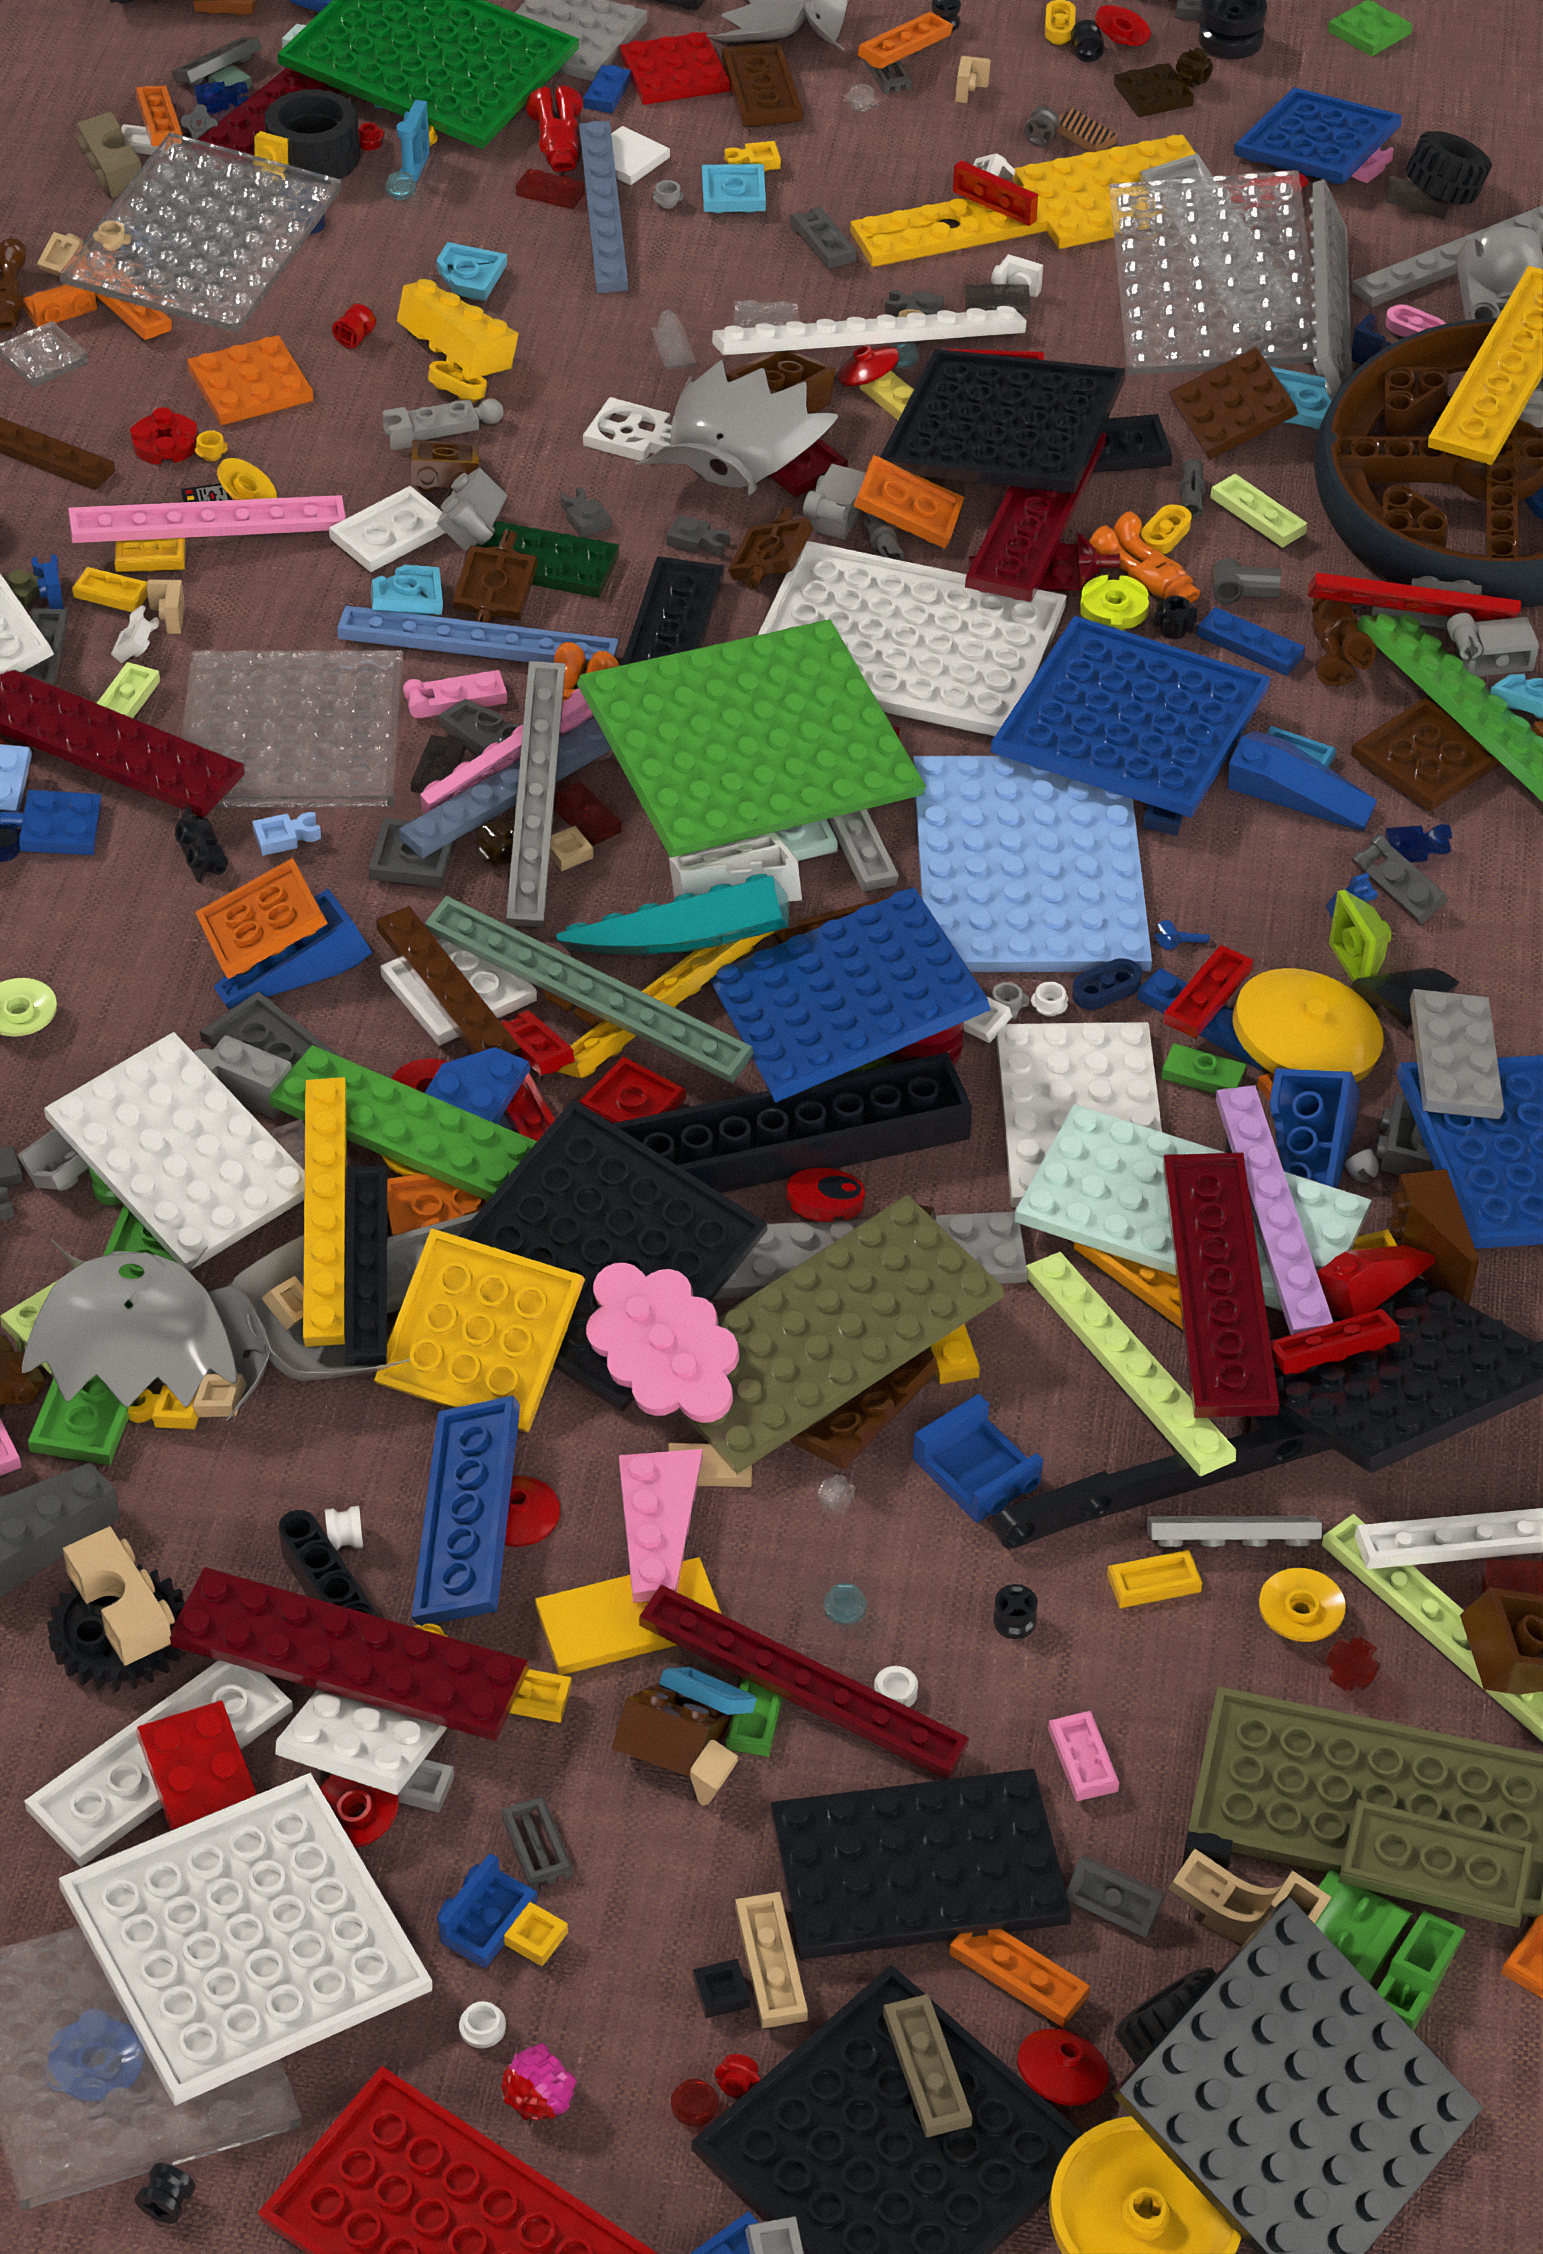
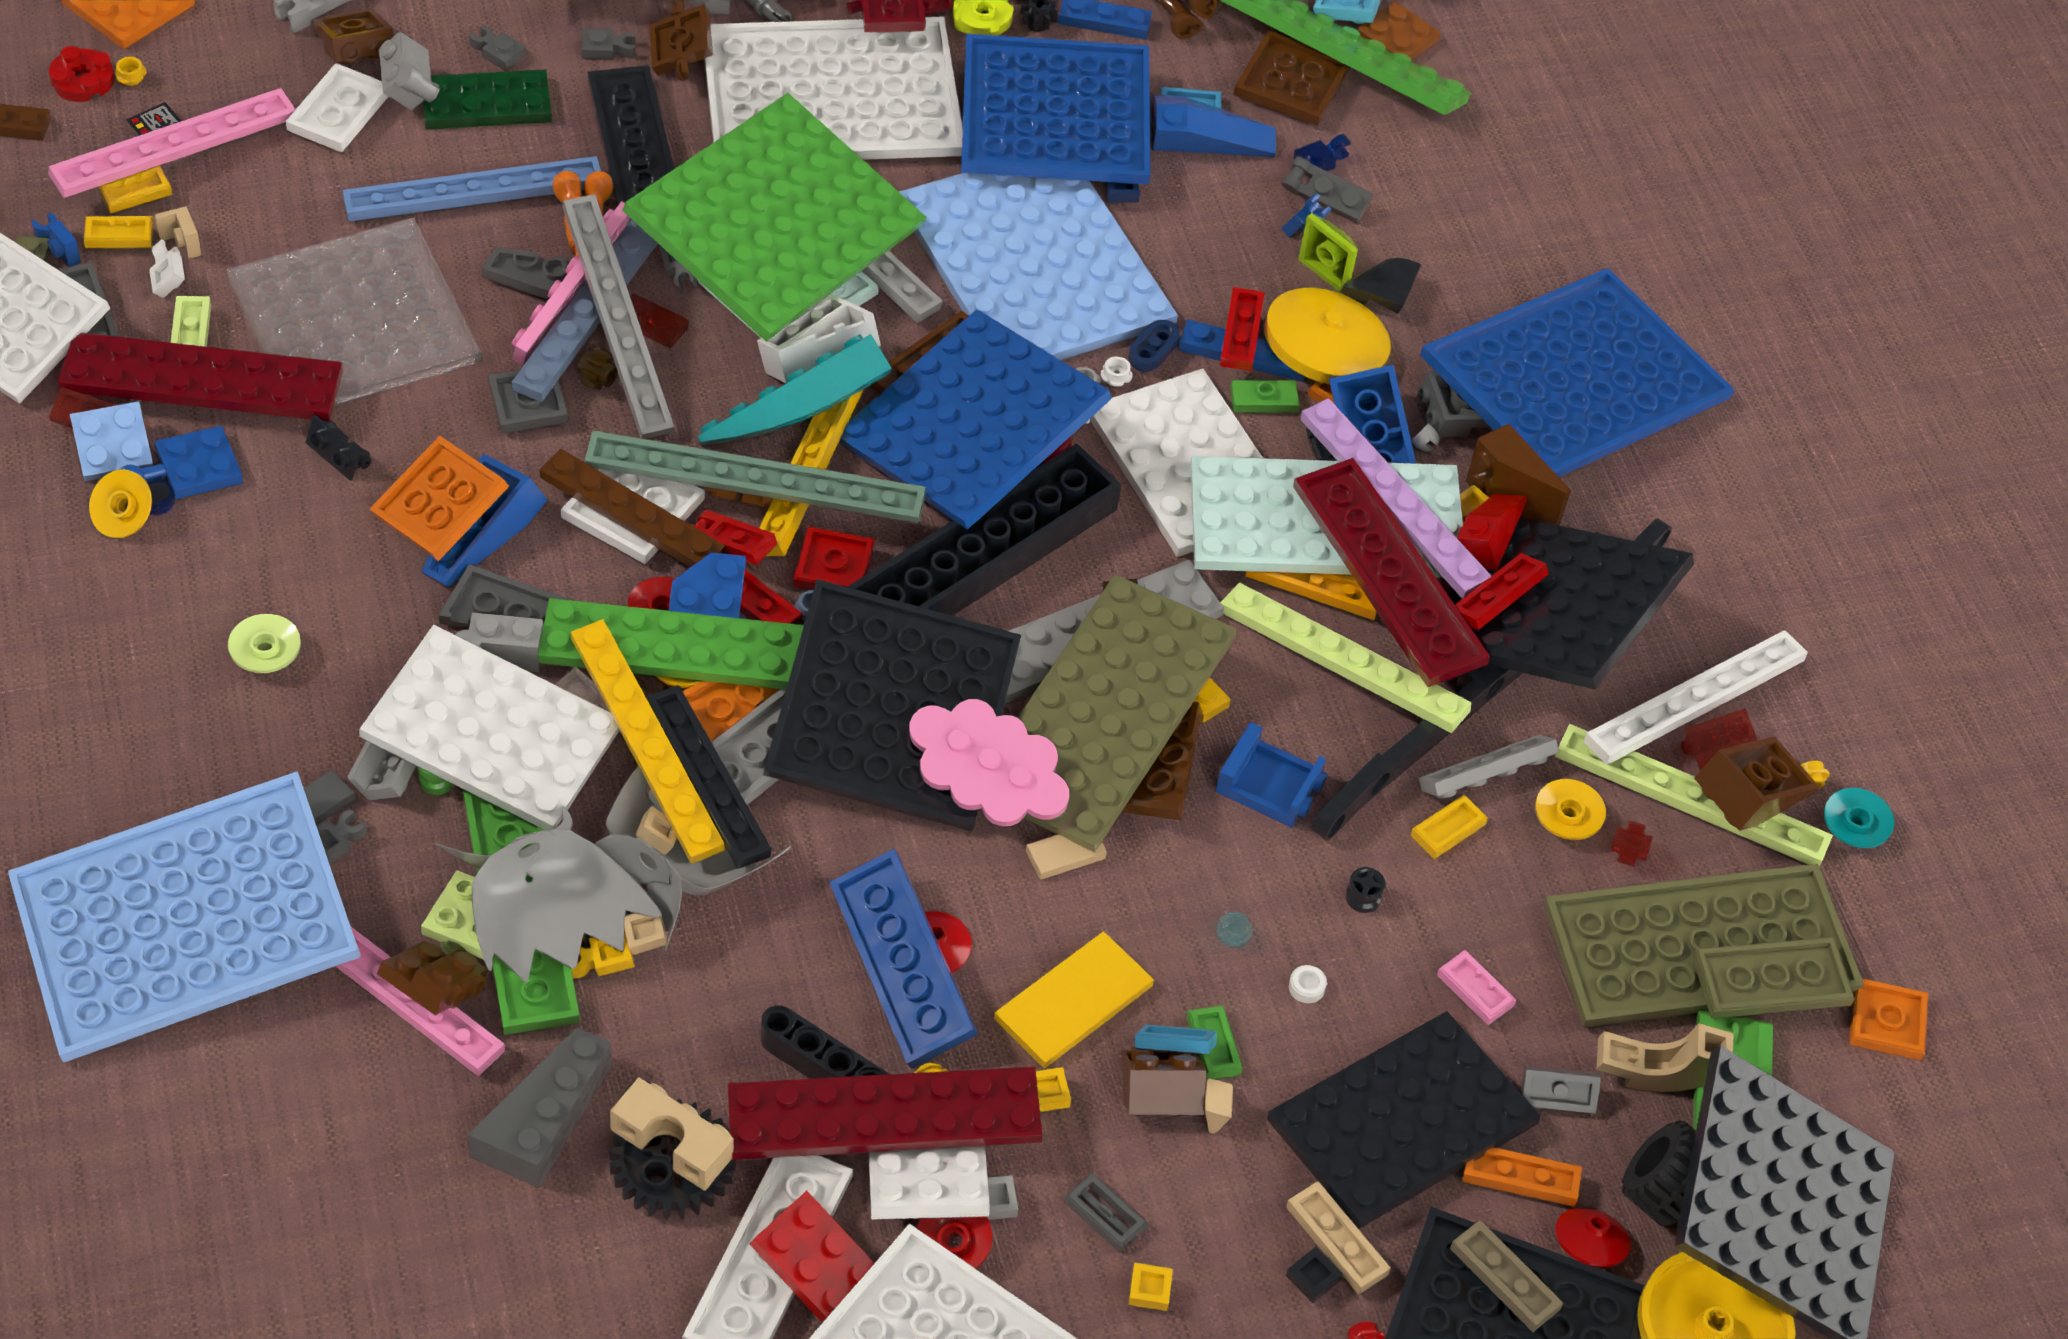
camera: 30 degrees left, 5 degrees up
(244, 480) = (185, 98): yellow dish -> none
(281, 833) = (404, 416): light blue plate -> none
(344, 1527) = (811, 1006): white wheel -> none
(409, 590) = (392, 160): medium azure plate -> none
(438, 761) = (502, 313): clear smoke plate -> none
(440, 695) = (479, 243): bright pink plate -> none
(479, 1326) = (832, 798): yellow plate -> none
(483, 1912) = (1105, 1286): blue bracket -> none
(495, 581) = (461, 131): reddish brown plate -> none
(570, 848) = (663, 355): tan plate -> none
(657, 1515) = (1055, 909): bright pink wing -> none
(804, 1682) = (1241, 1004): dark red plate -> none
(825, 1194) = (1034, 593): red tile -> none
(836, 1494) = (1178, 842): clear plate -> none
(1171, 938) = (1180, 290): blue hand -> none
(1210, 1845) = (1613, 1024): black plate -> none
(1420, 1967) = (1799, 1057): bright green slope -> none
(1456, 1054) = (1460, 325): light grey plate -> none

